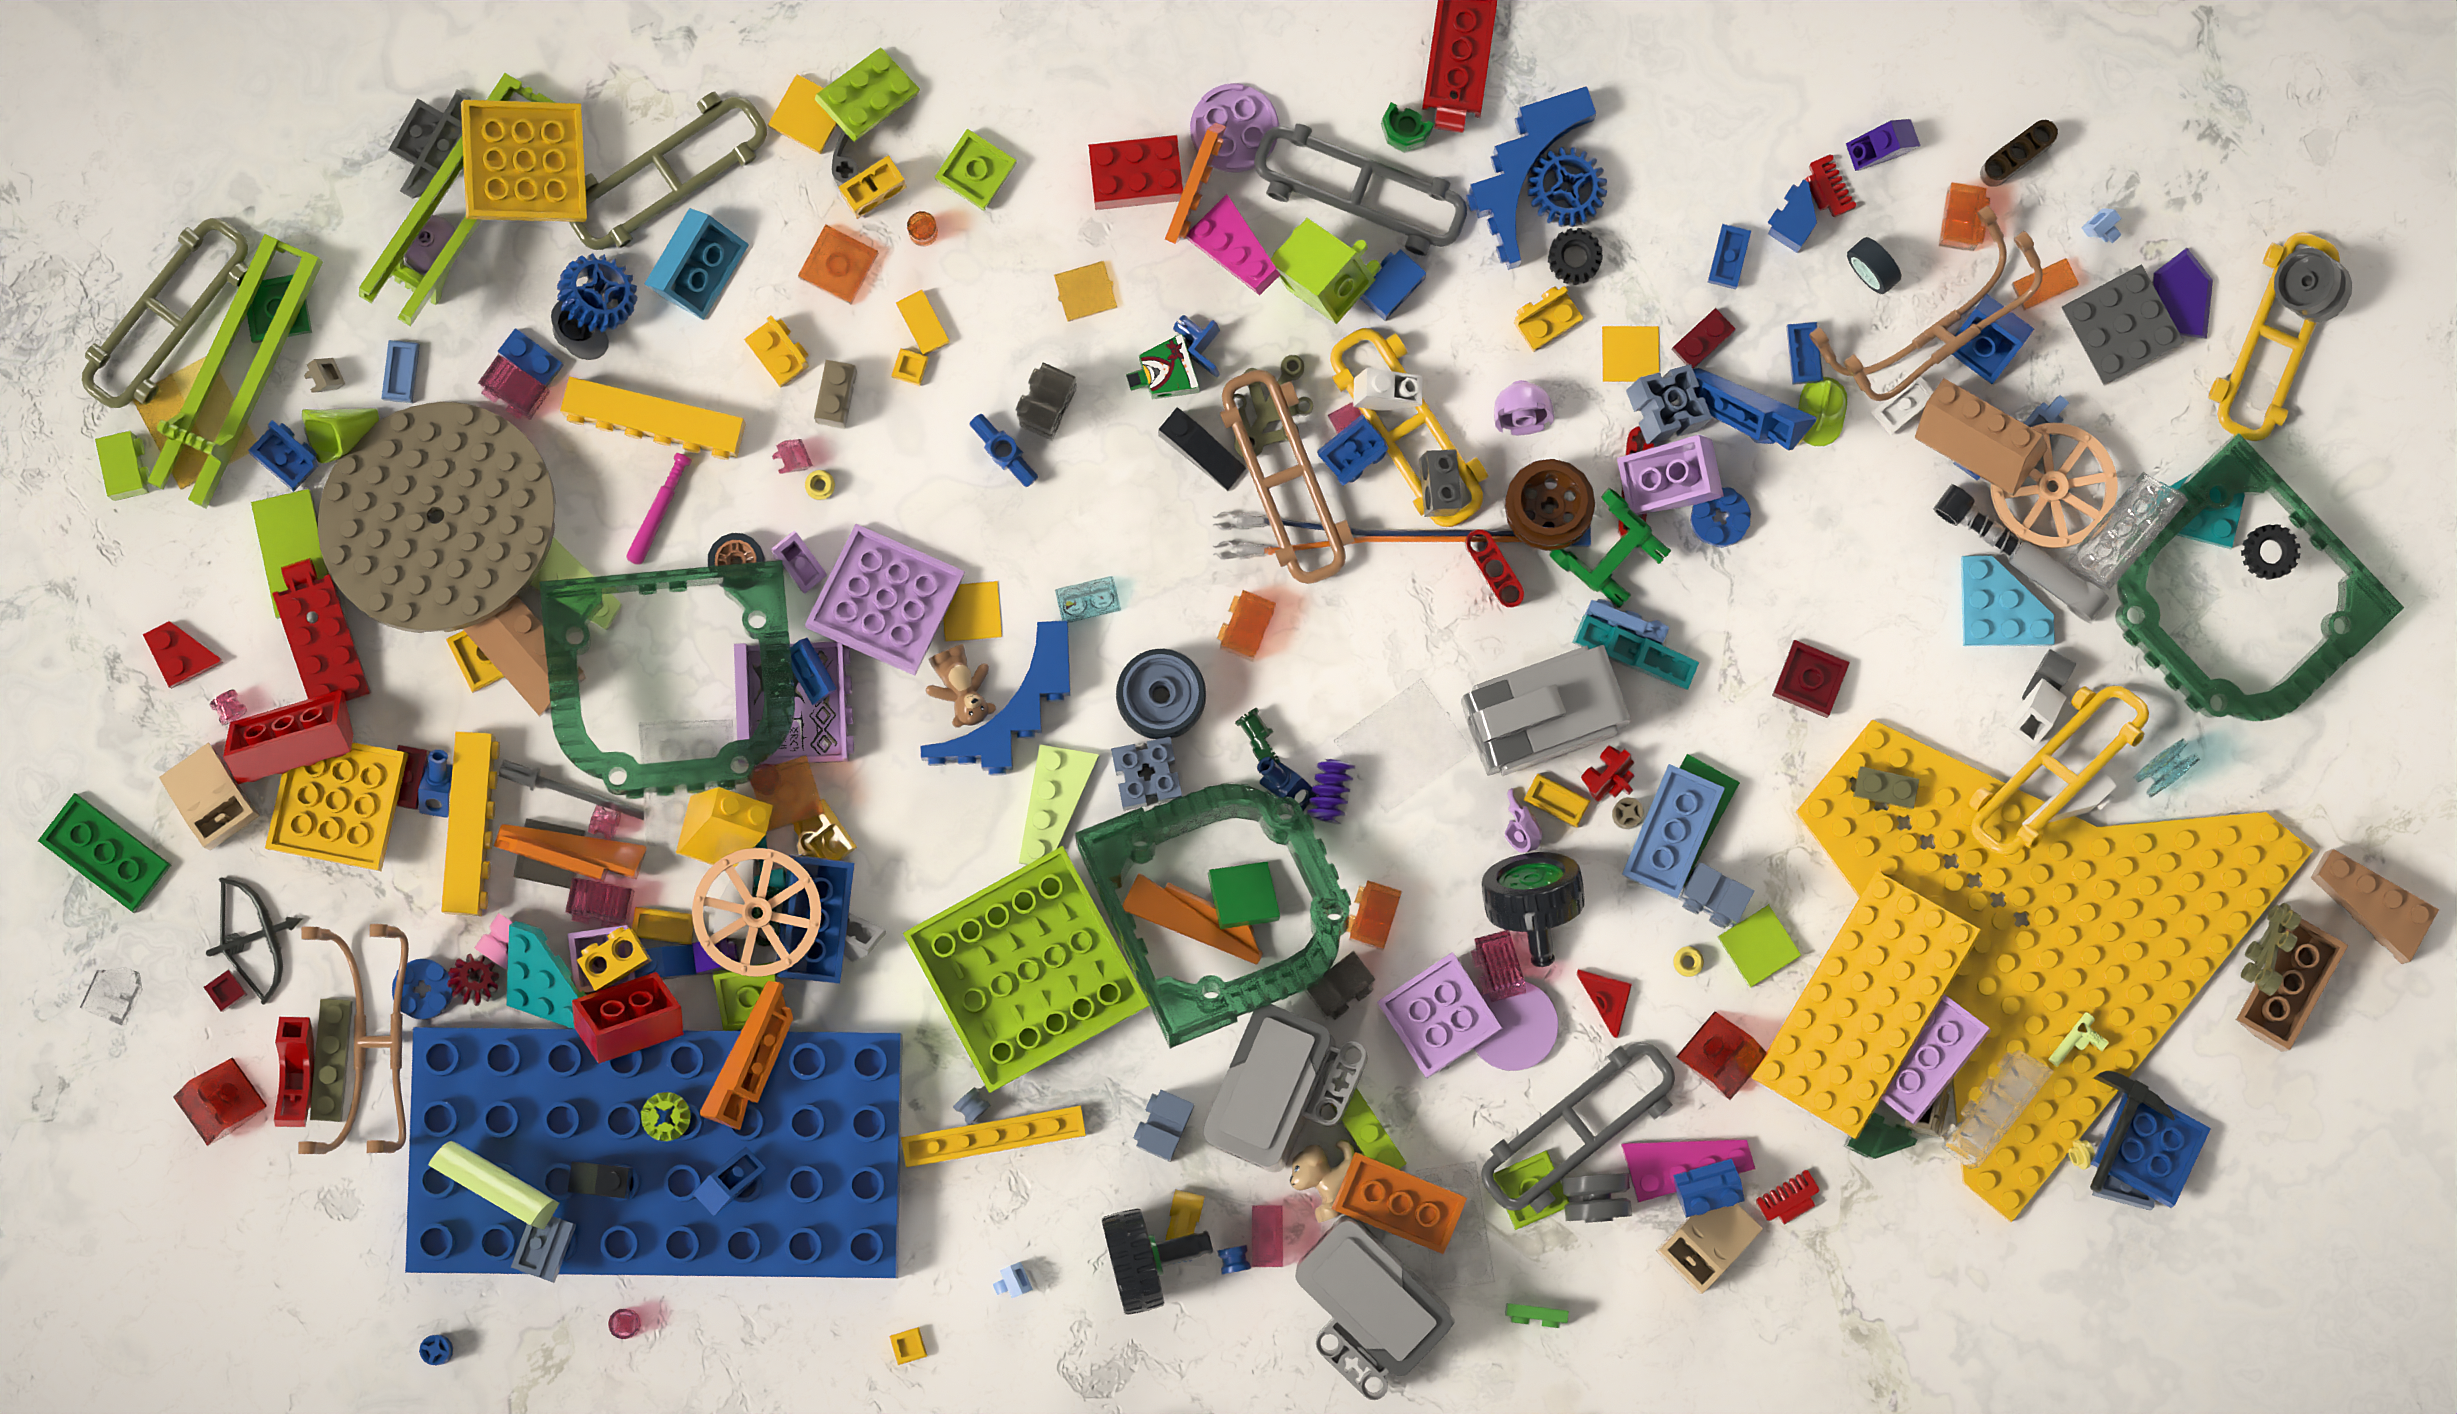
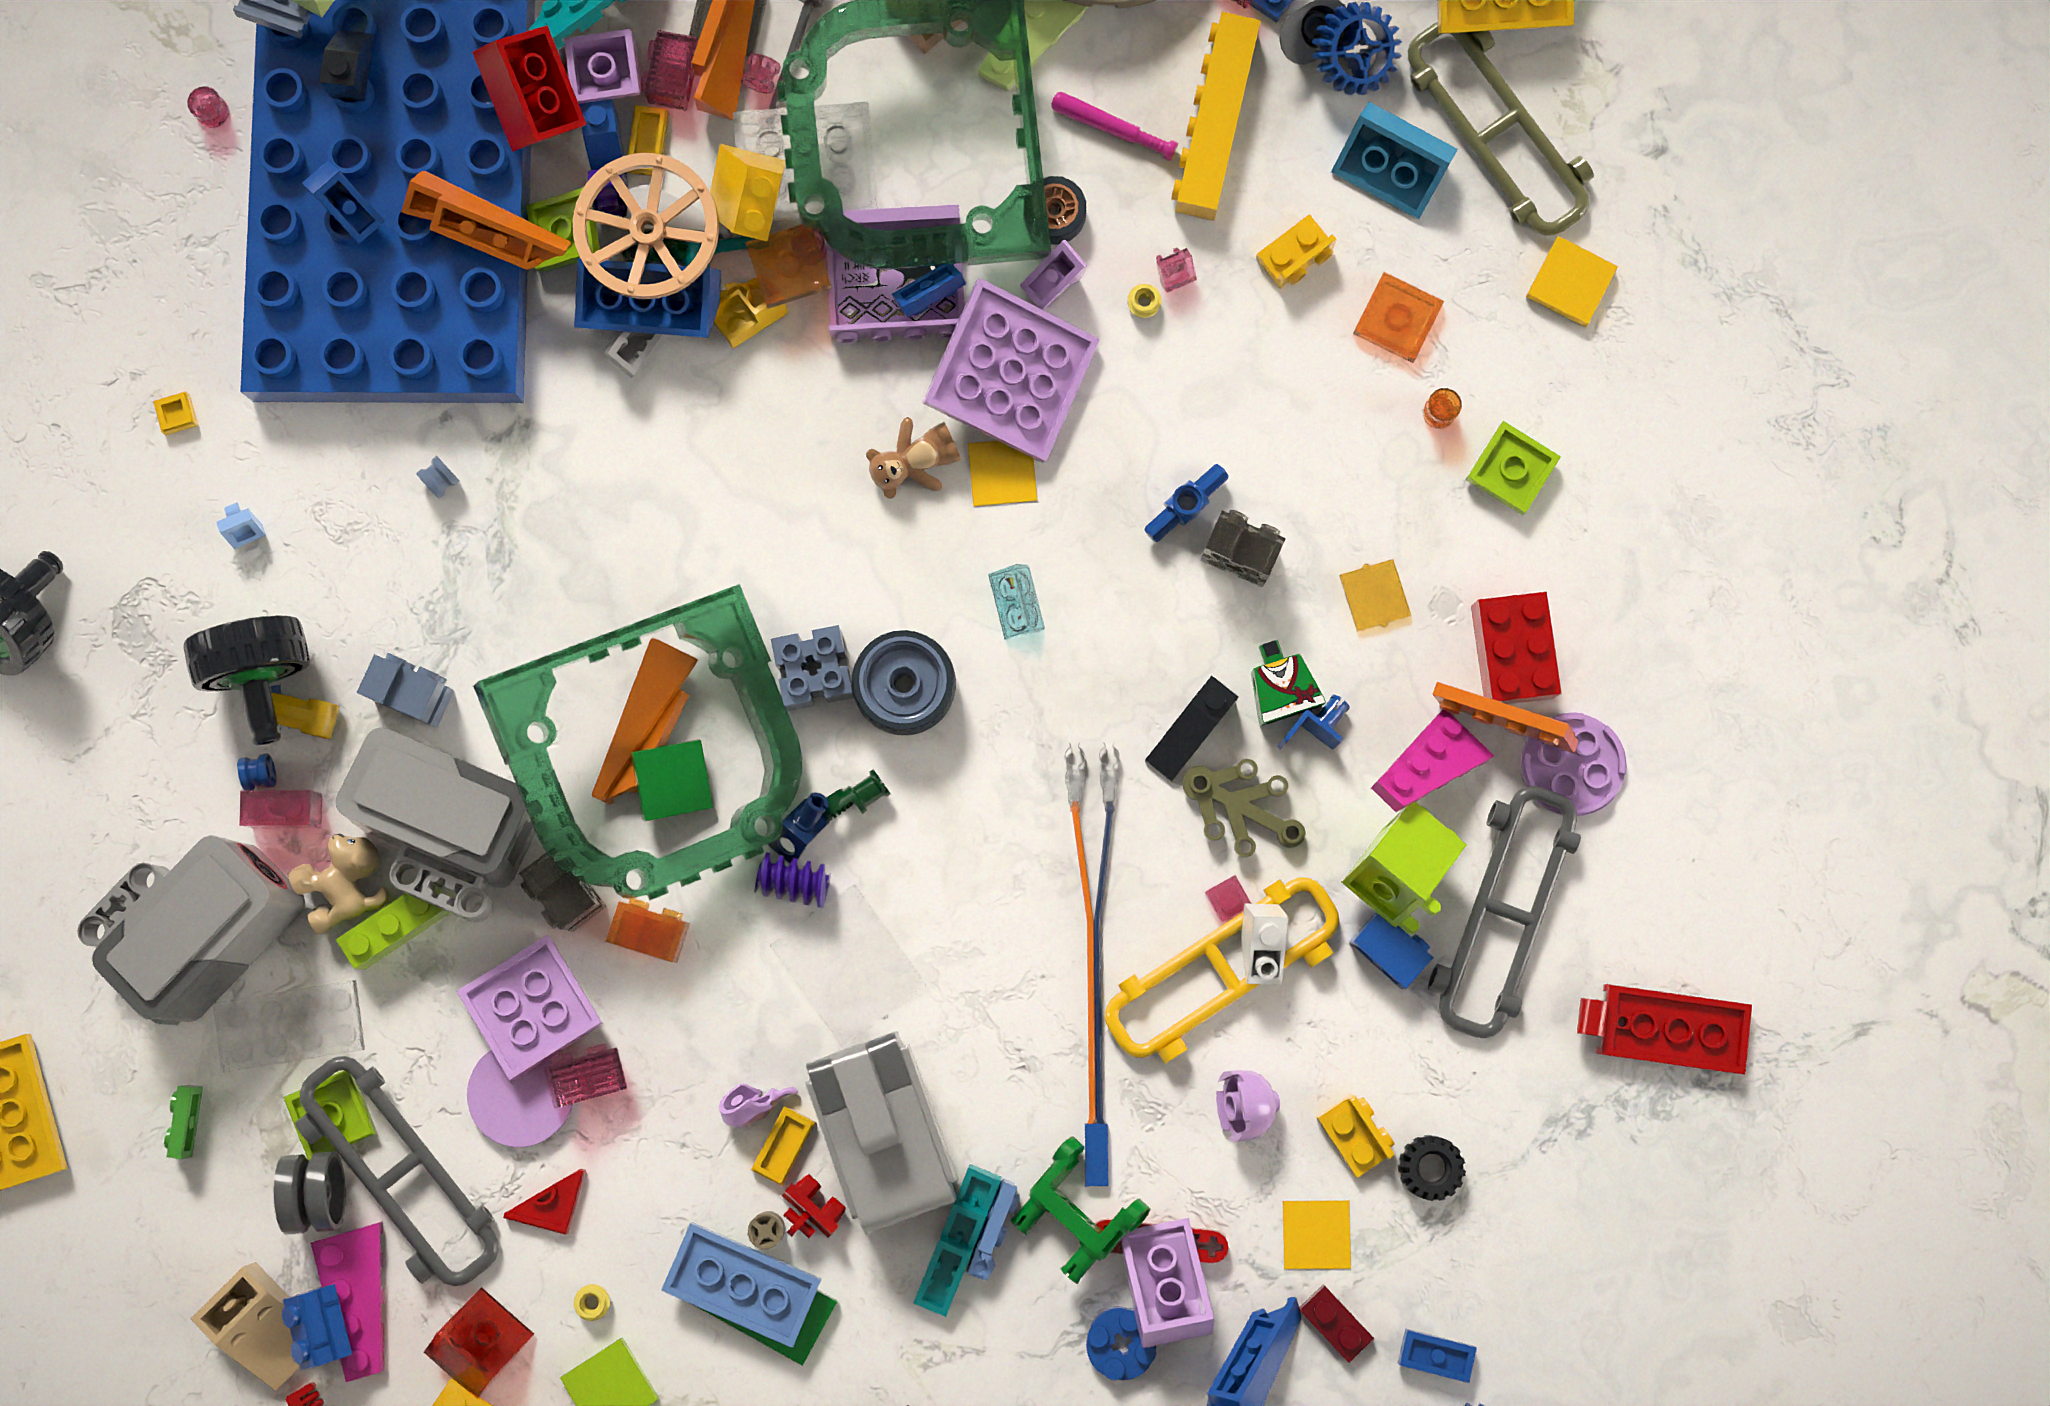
camera: 90 degrees right, 0 degrees up
(617, 967) = (593, 75): yellow brick -> none
(680, 1116) = (418, 147): lime gear -> none
(835, 394) = (1247, 313): dark tan brick -> none
(840, 162) = (1515, 314): dark grey panel -> none
(867, 94) = (1597, 343): lime plate -> none
(872, 187) = (1488, 349): yellow brick -> none
(910, 367) = (1282, 399): yellow tile -> none
(922, 322) = (1333, 412): yellow tile -> none
(993, 1136) = (403, 502): yellow plate -> none
(1022, 715) = (926, 554): blue arch -> none
(1026, 969) = (585, 530): lime slope -> none
(1054, 796) = (794, 567): yellowish green wing -> none
(1247, 625) = (986, 781): clear orange brick -> none
(1337, 533) = (1093, 885): medium nougat bar -> none
(1353, 450) = (1192, 904): blue bracket -> none
(1399, 1203) = (305, 959): orange plate -> none
(1405, 129) = (1579, 964): green hair -> none
(1440, 483) = (1153, 1005): dark grey brick -> none
(1507, 576) = (1037, 1073): red beam -> none
(1533, 896) = (660, 1117): black wheel -> none
(1542, 126) = (1588, 1128): blue arch -> none
(1556, 193) = (1502, 1164): blue gear -> none
(1567, 479) = (1160, 1157): reddish brown wheel -> none
(1668, 404) = (1253, 1281): sand blue brick -> none
(1715, 895) = (663, 1338): sand blue brick -> none

